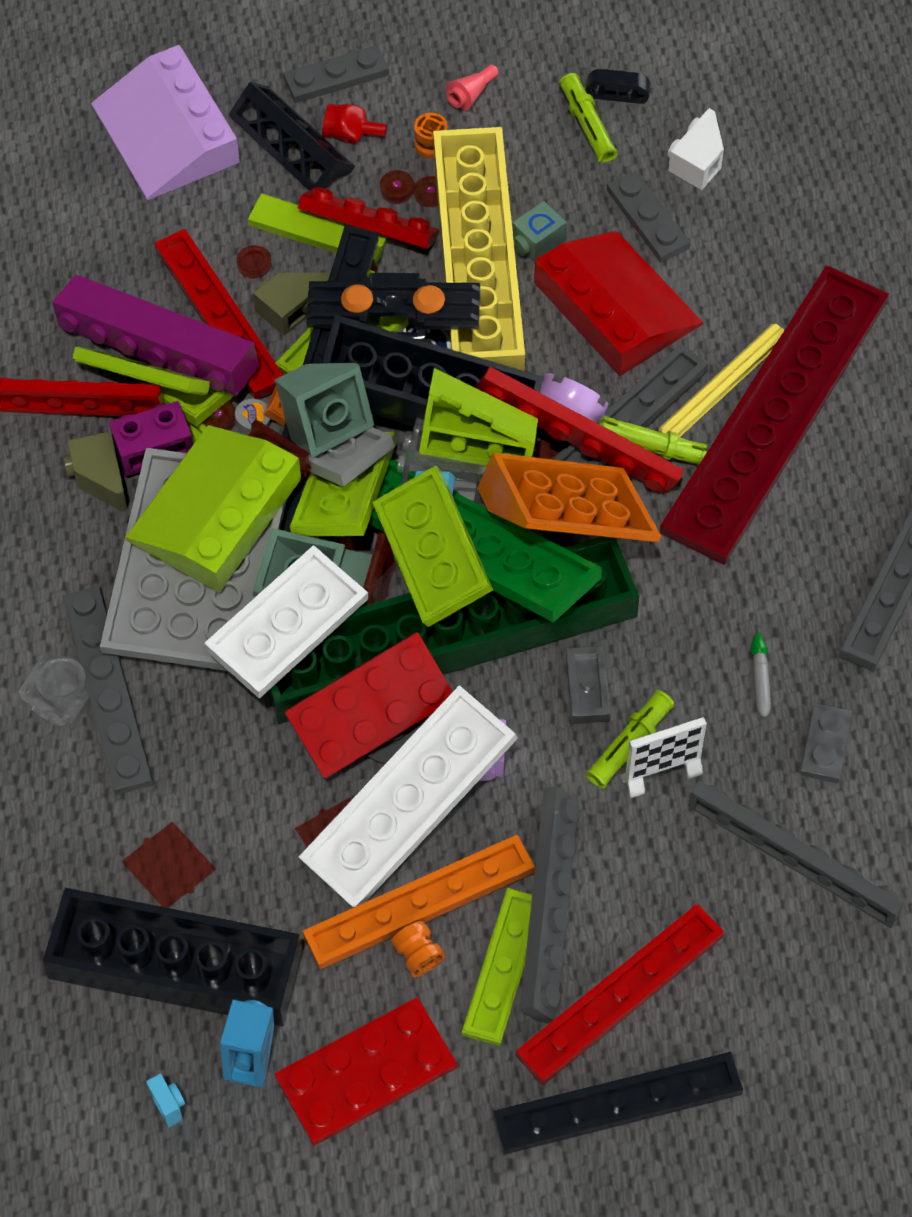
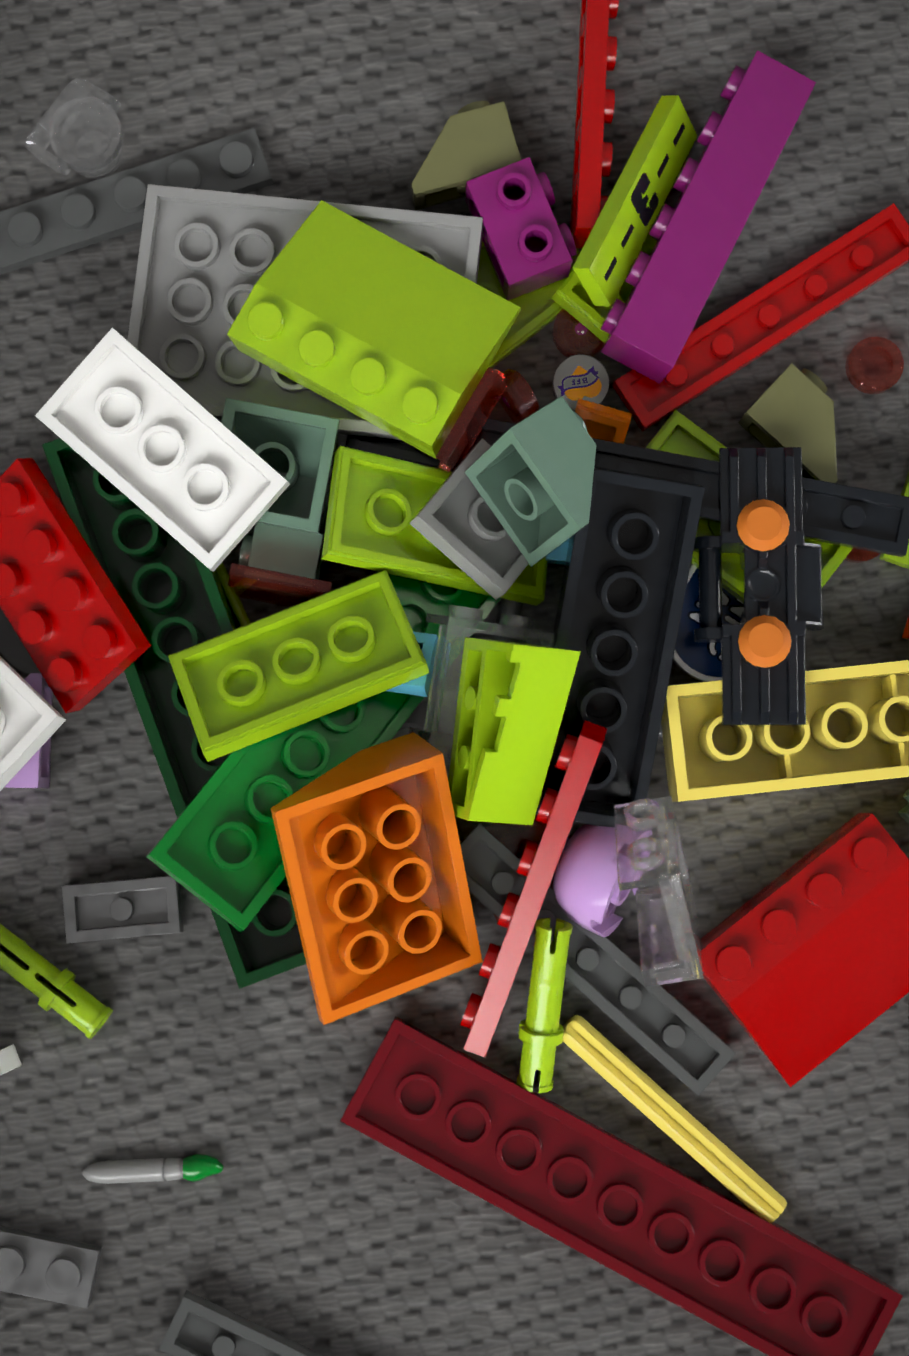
camera: 85 degrees right, 25 degrees up
(597, 368) = (664, 913): none -> clear window

